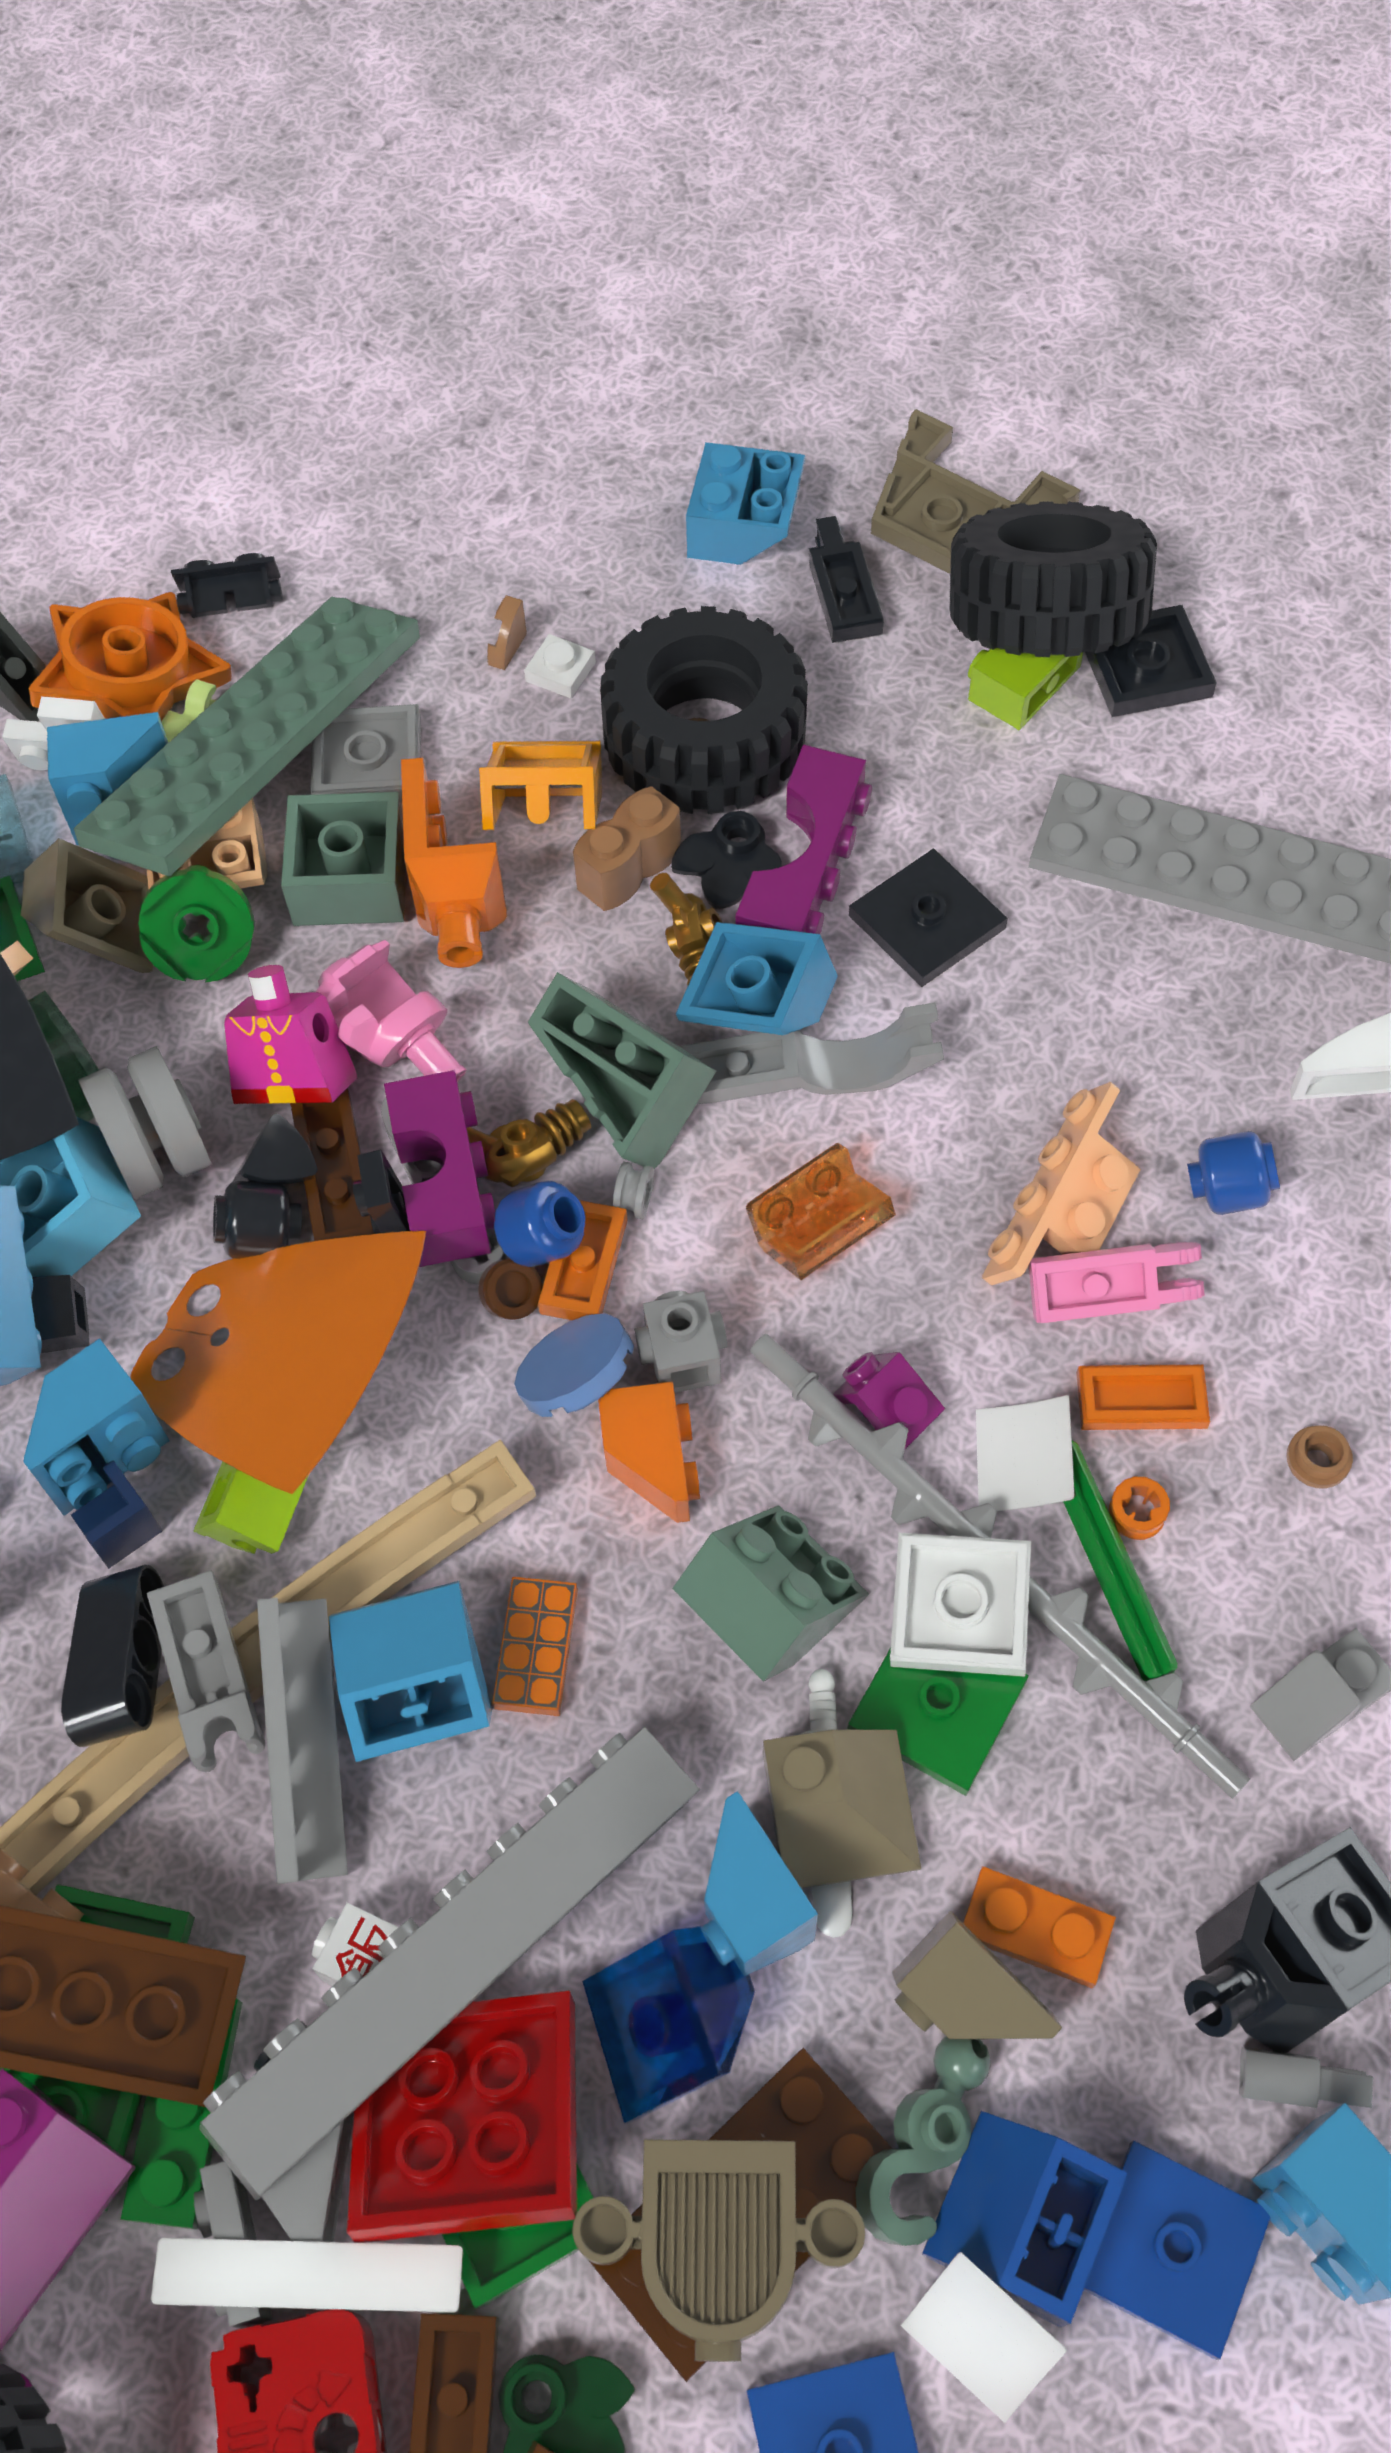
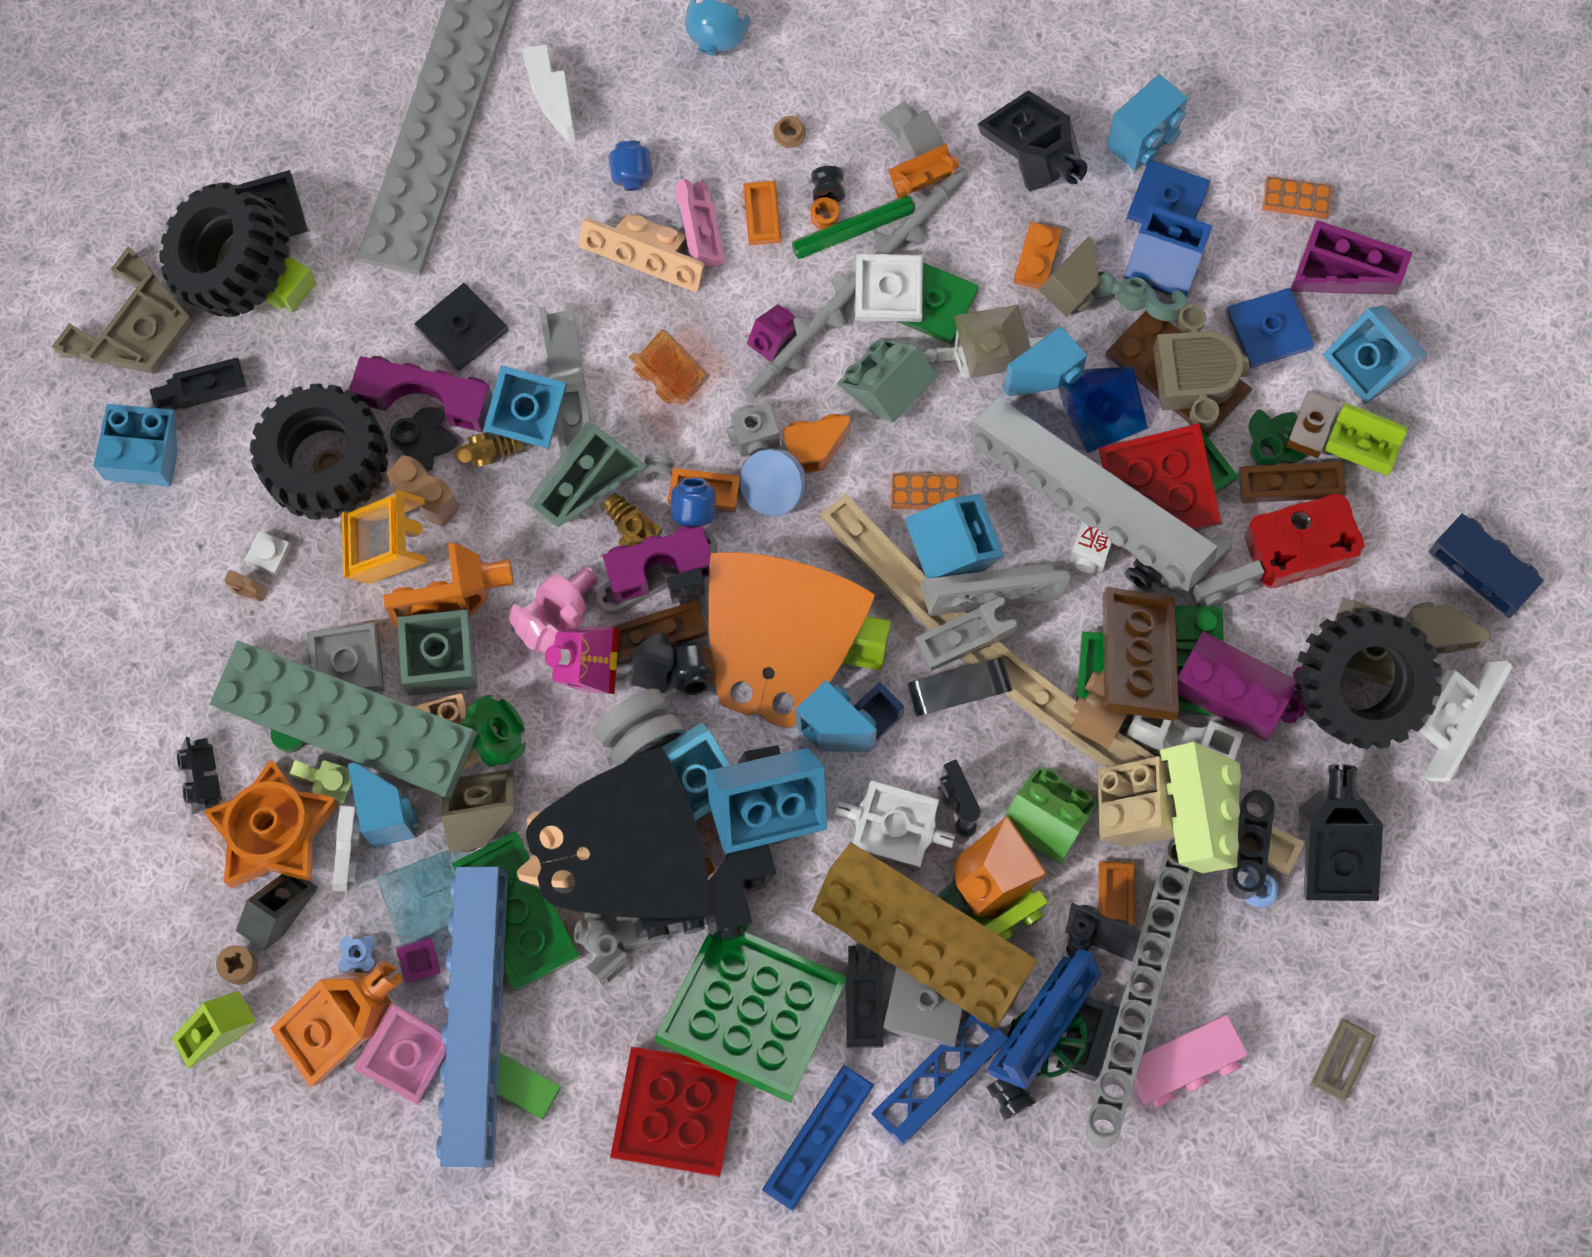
camera: 95 degrees left, 10 degrees up
(307, 2275) = (1238, 542): white sticker -> none
(510, 1289) = (725, 526): reddish brown tile -> none
(983, 2337) = (1218, 268): white sticker -> none
(1025, 1454) = (800, 265): white sticker -> none
(1198, 1513) = (828, 183): none -> black wheel
(1233, 1700) = (923, 170): none -> orange hinge
(1300, 2080) = (1093, 145): light grey bar -> none

